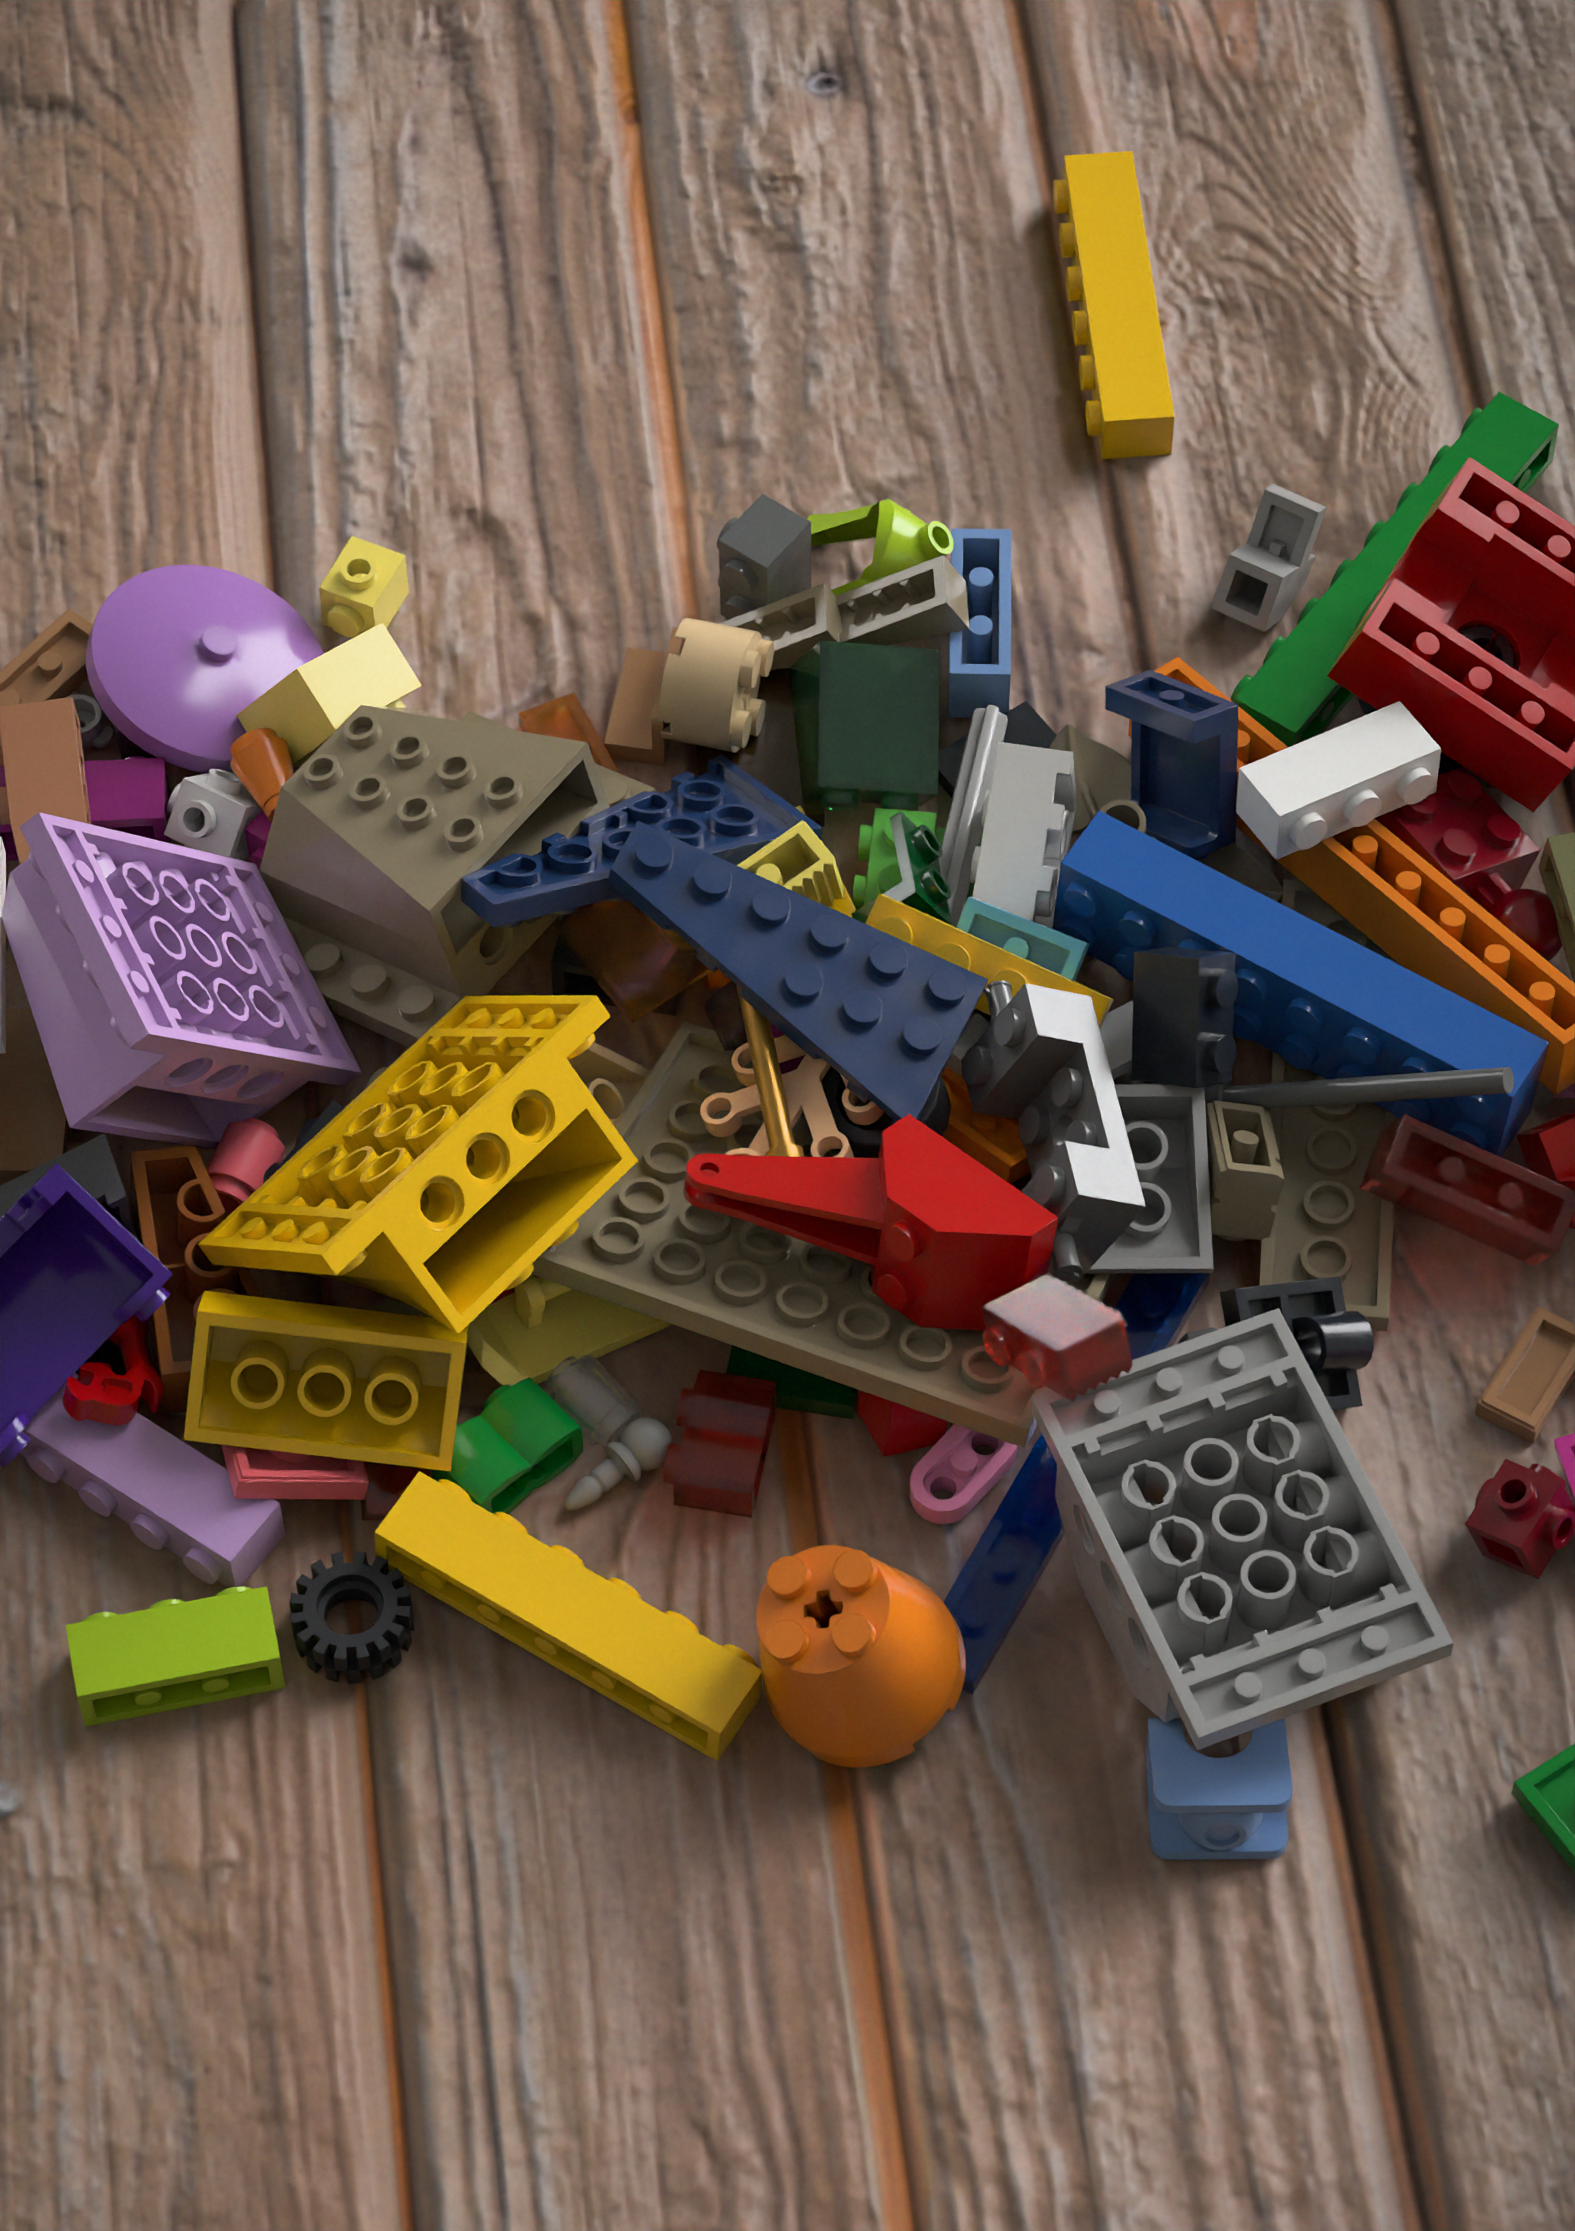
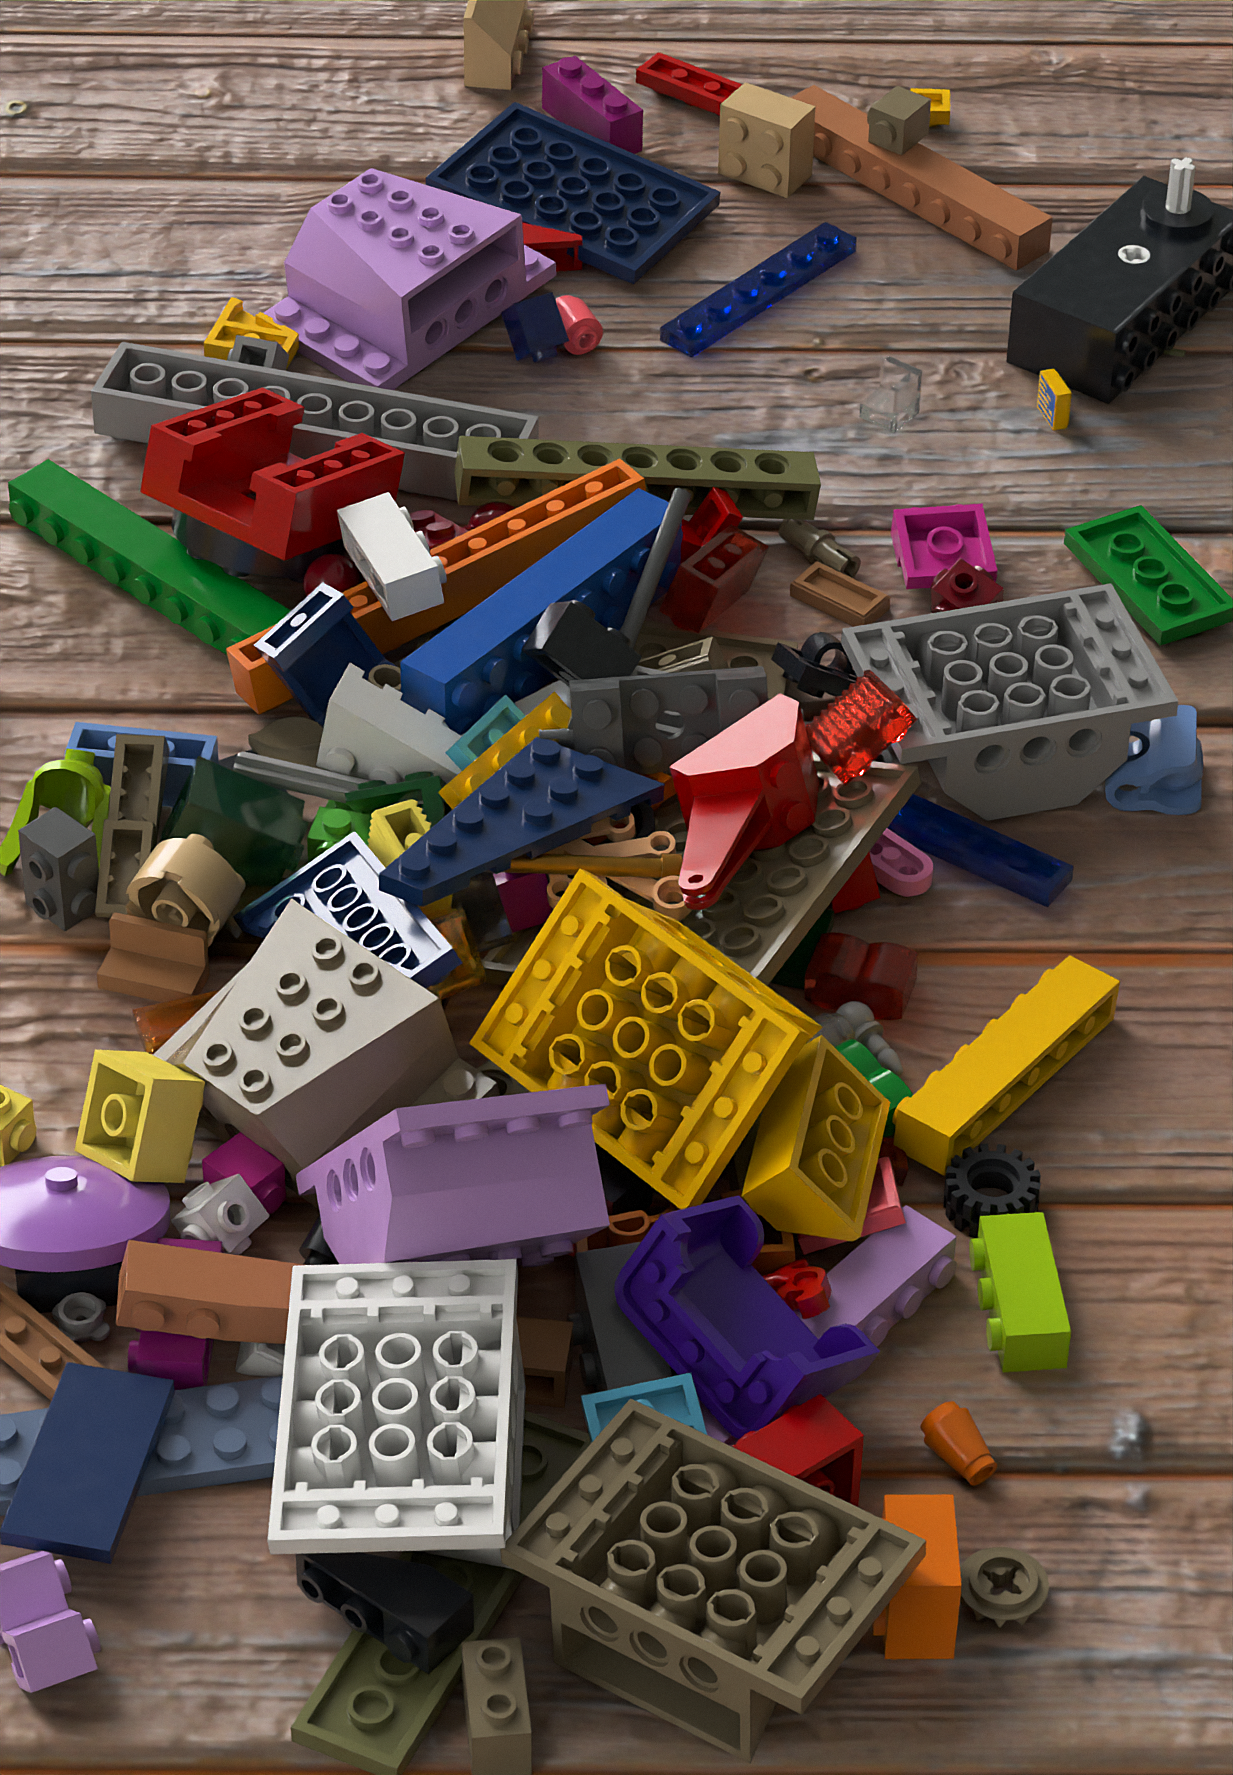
camera: 85 degrees left, 15 degrees down
(262, 766) = (206, 1158): orange cone -> none
(855, 1655) = (1060, 900): orange cone -> none
(1275, 561) = (122, 624): light grey brick -> none

